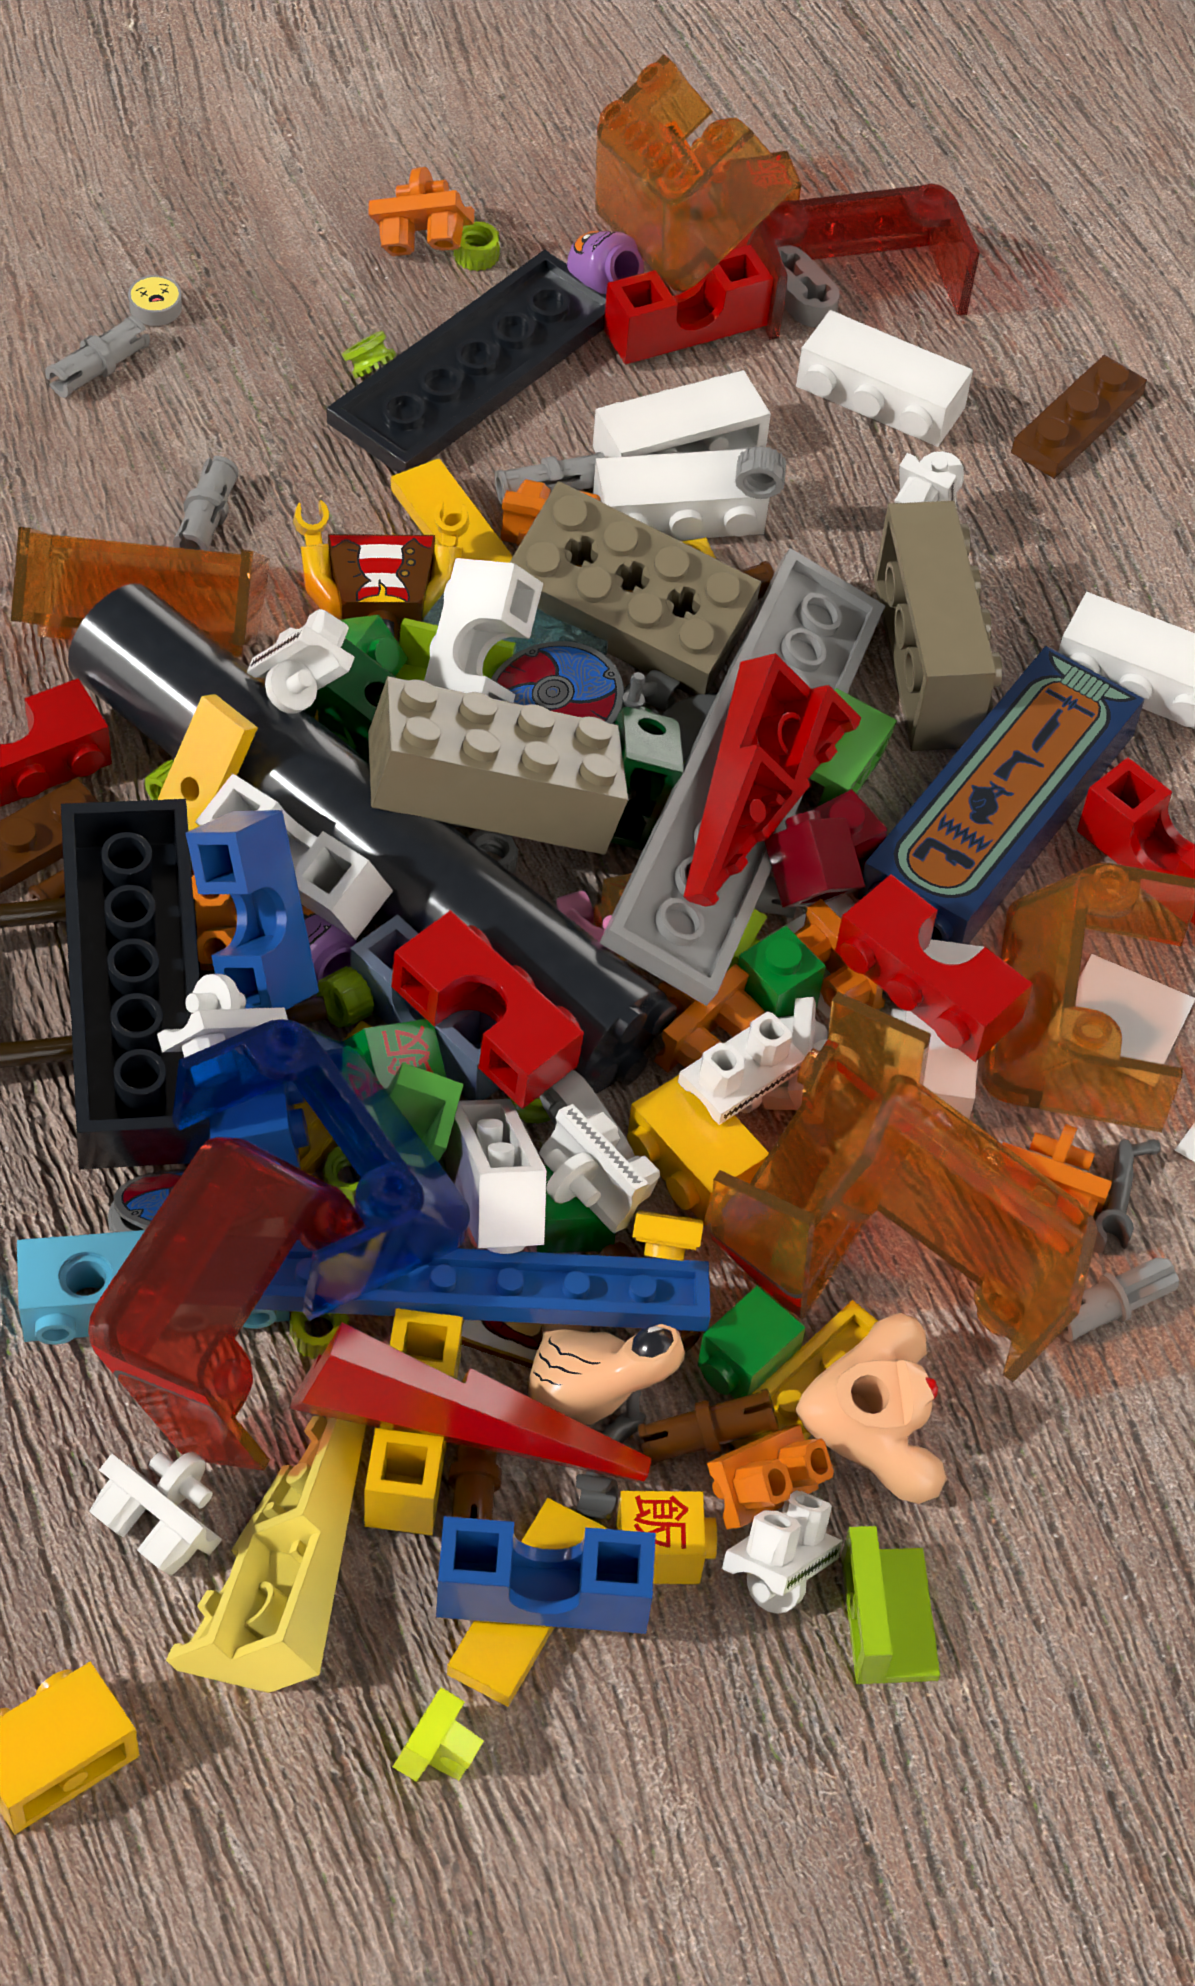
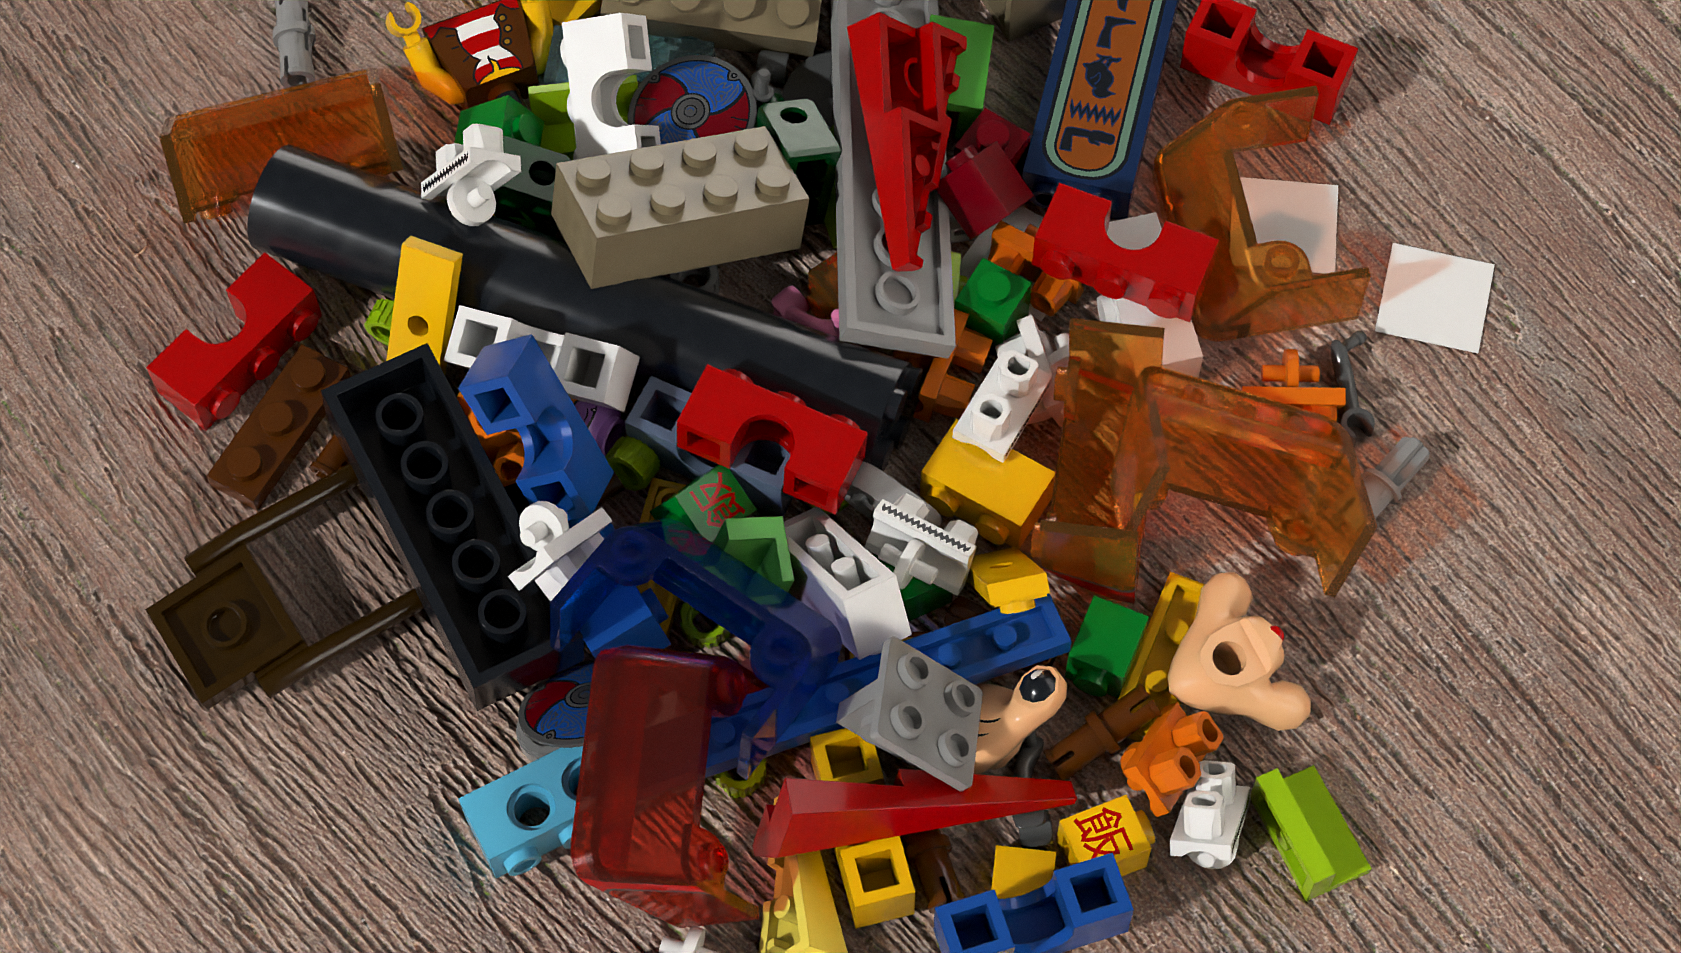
camera: 15 degrees left, 10 degrees up
(515, 1321) = (918, 714): none -> light grey bracket

